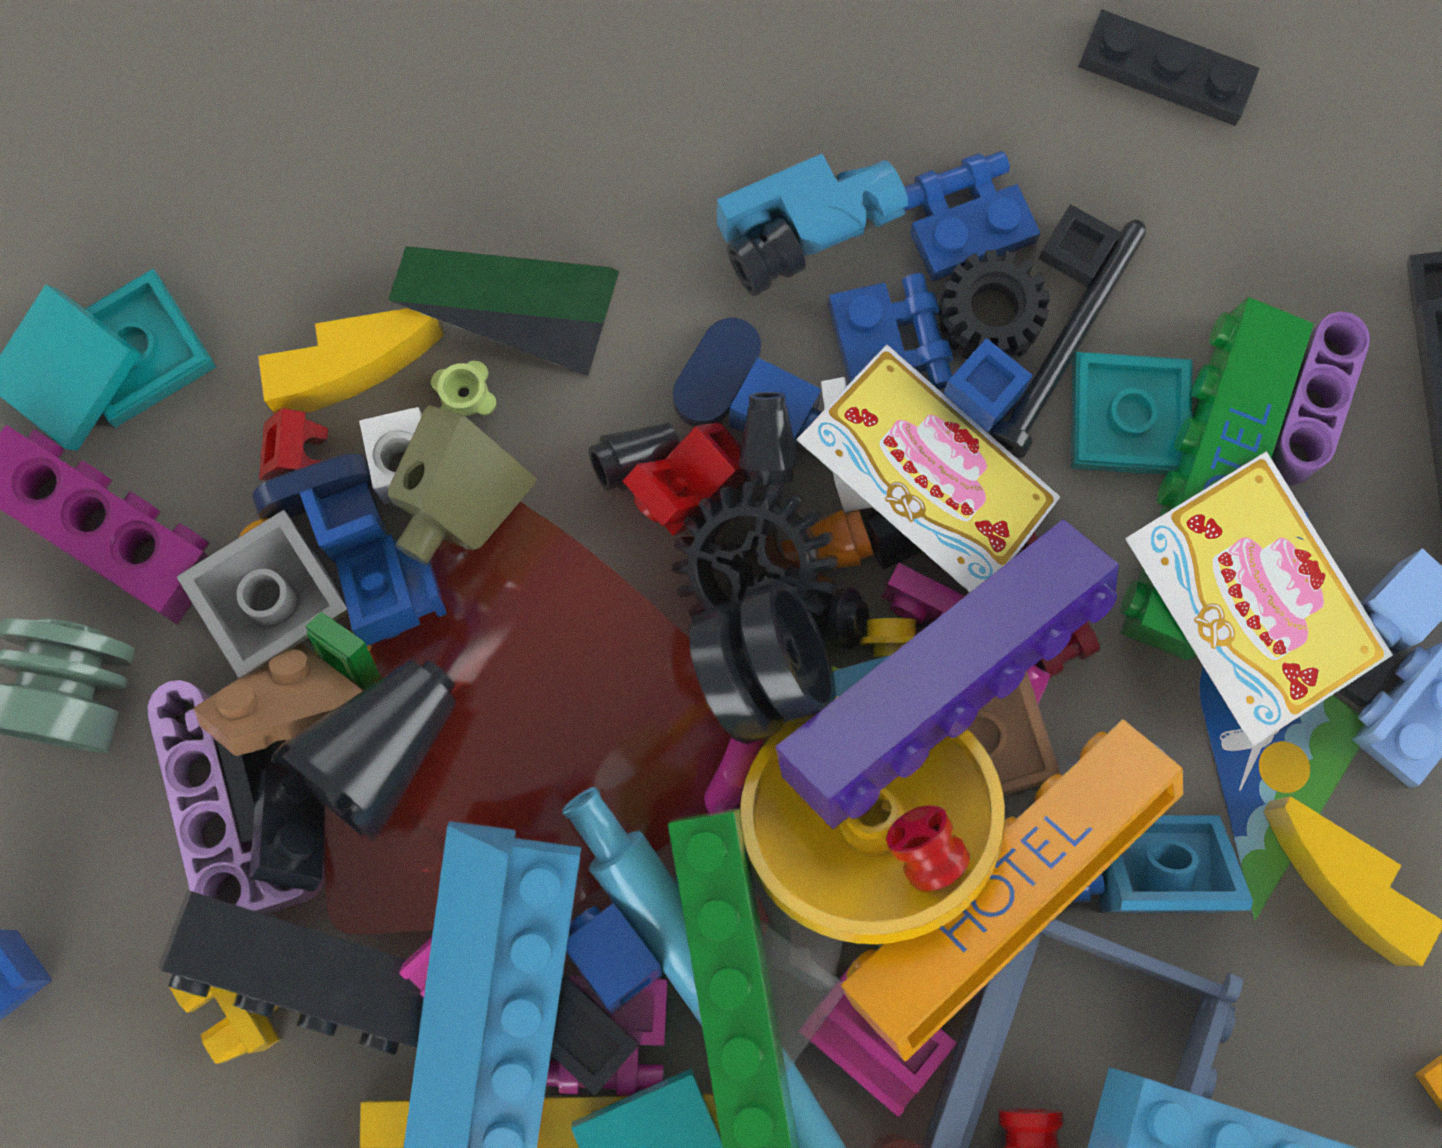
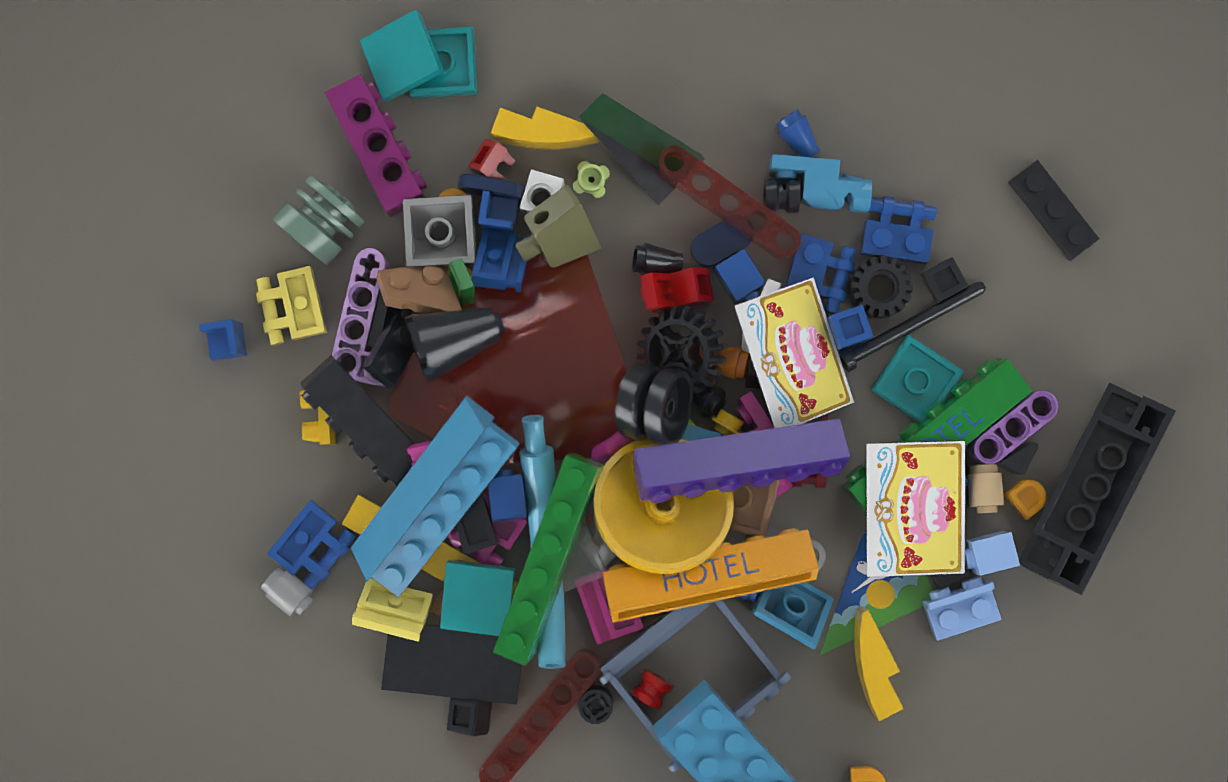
camera: 35 degrees right, 10 degrees up
(97, 840) = (301, 305): none -> light yellow plate
(671, 285) = (720, 187): none -> clear red beam
(735, 157) = (797, 134): none -> blue cone
(768, 440) = (722, 296): black cone -> none
(928, 848) = (677, 535): red wheel -> none
(1338, 510) = (985, 488): none -> tan brick
(1359, 439) = (1019, 459): none -> black slope
(1402, 491) = (1026, 497): none -> light orange tile

